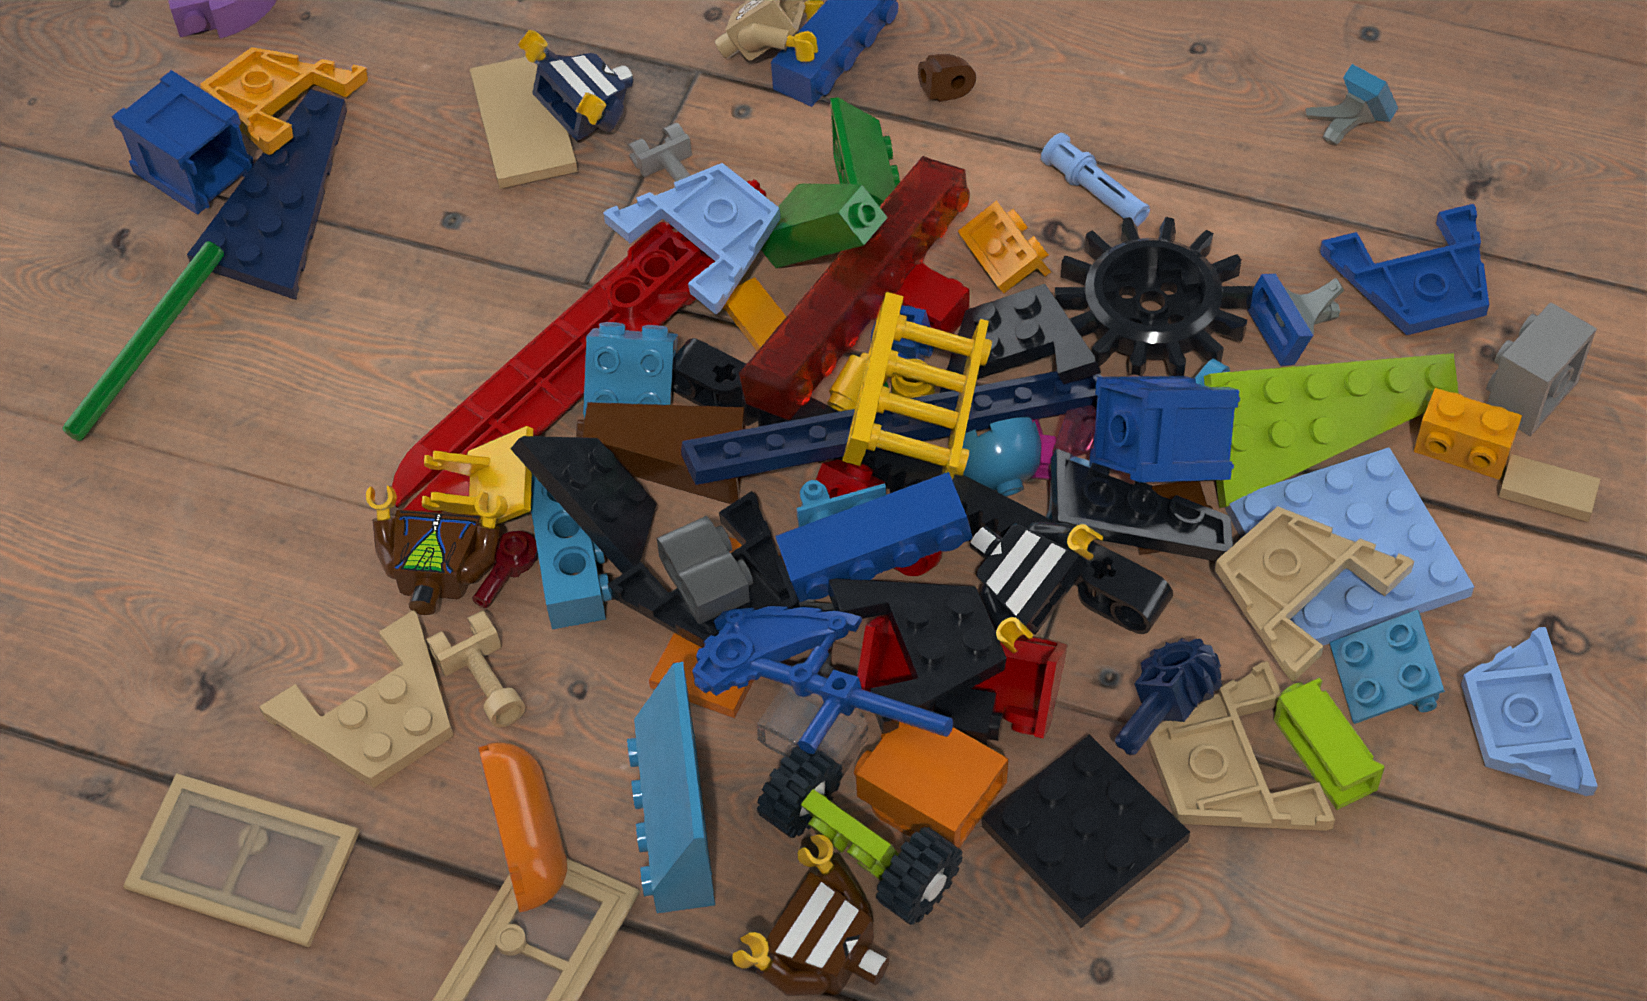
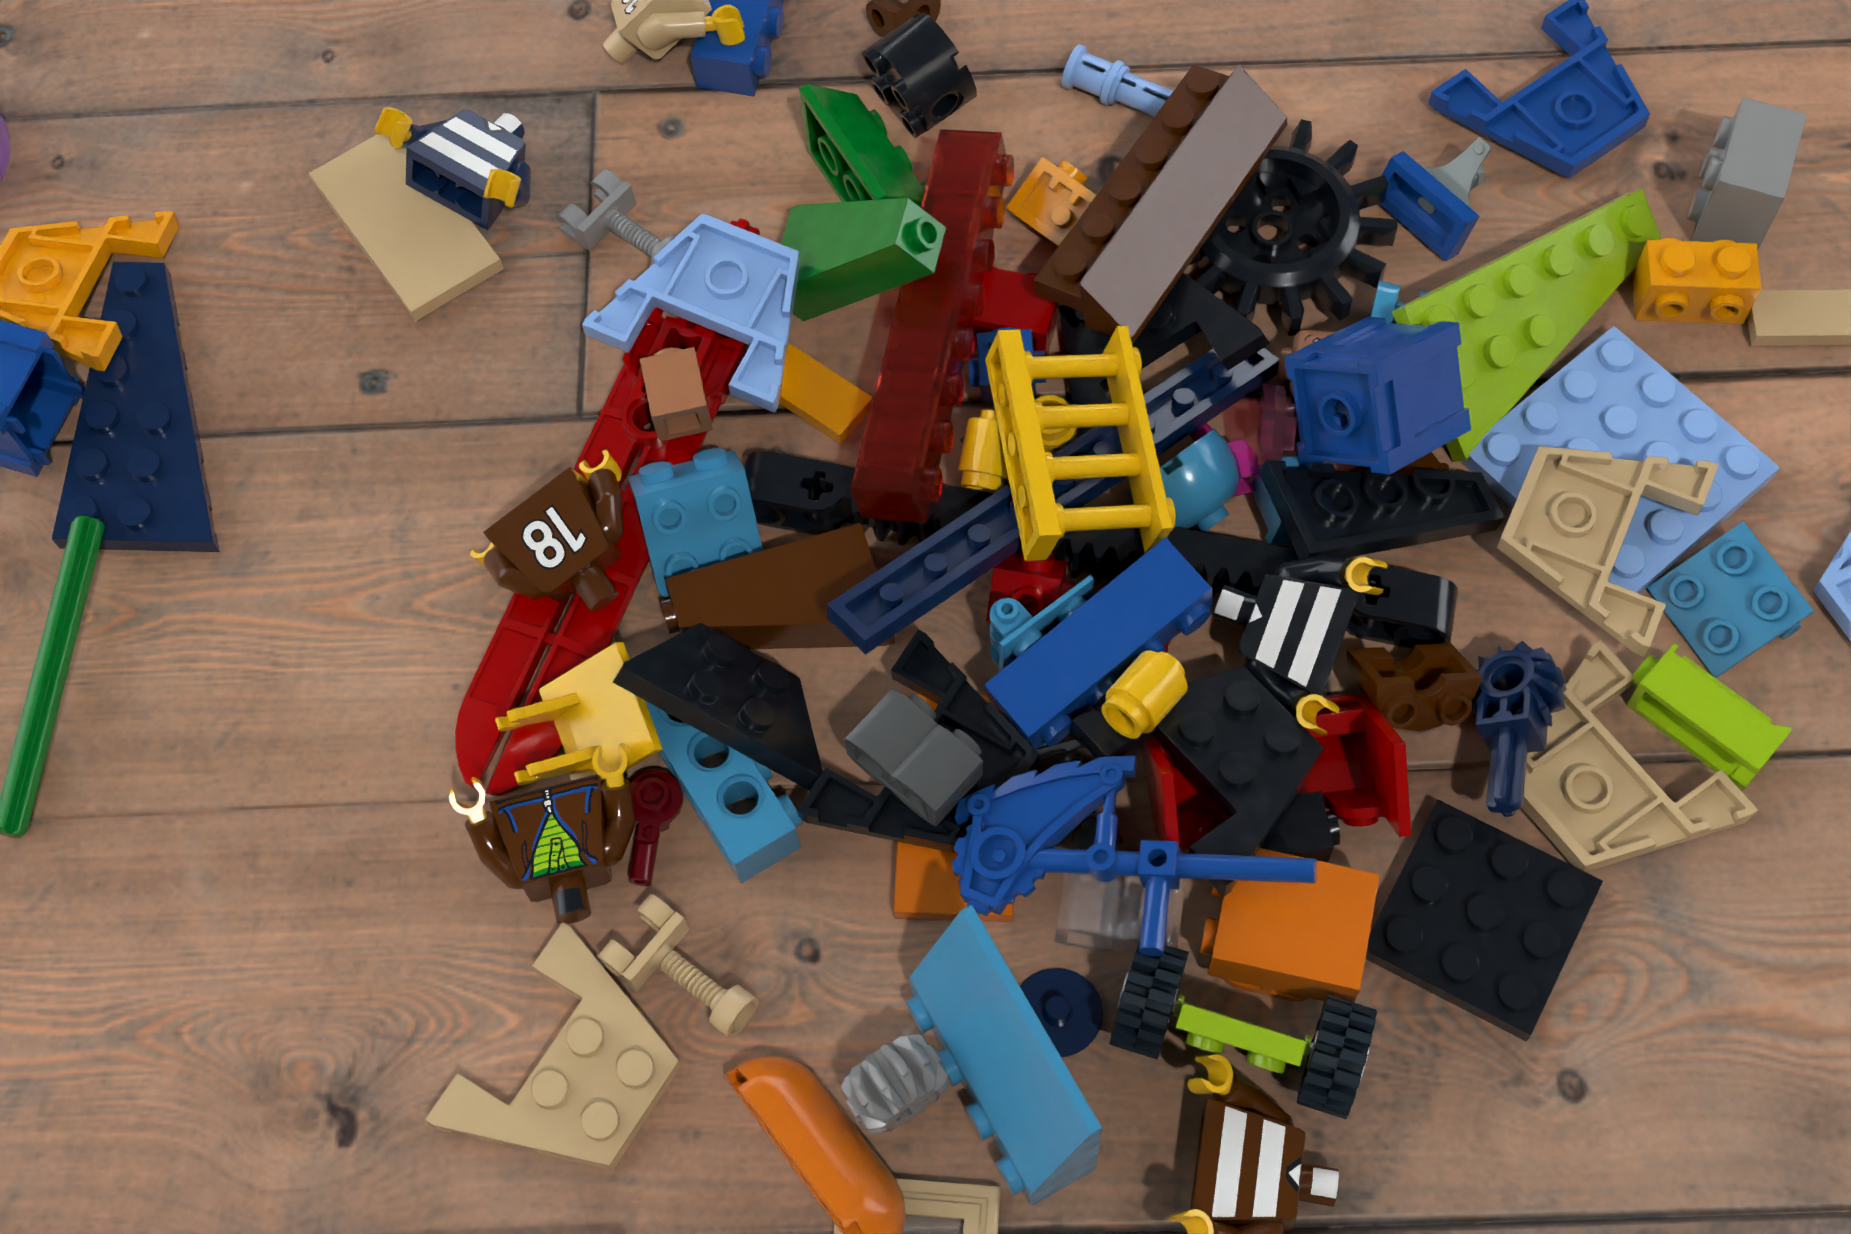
camera: 20 degrees left, 10 degrees up
(526, 351) = (561, 538): none -> reddish brown torso
(591, 788) = (895, 1083): none -> light grey gear
(648, 279) = (676, 393): none -> nougat brick
(734, 789) = (1066, 1008): none -> dark blue piece
(885, 574) = (1144, 694): none -> yellow brick
(932, 118) = (919, 73): none -> black brick
(1067, 251) = (1163, 201): none -> slope
(1104, 652) = (1419, 691): none -> reddish brown cylinder

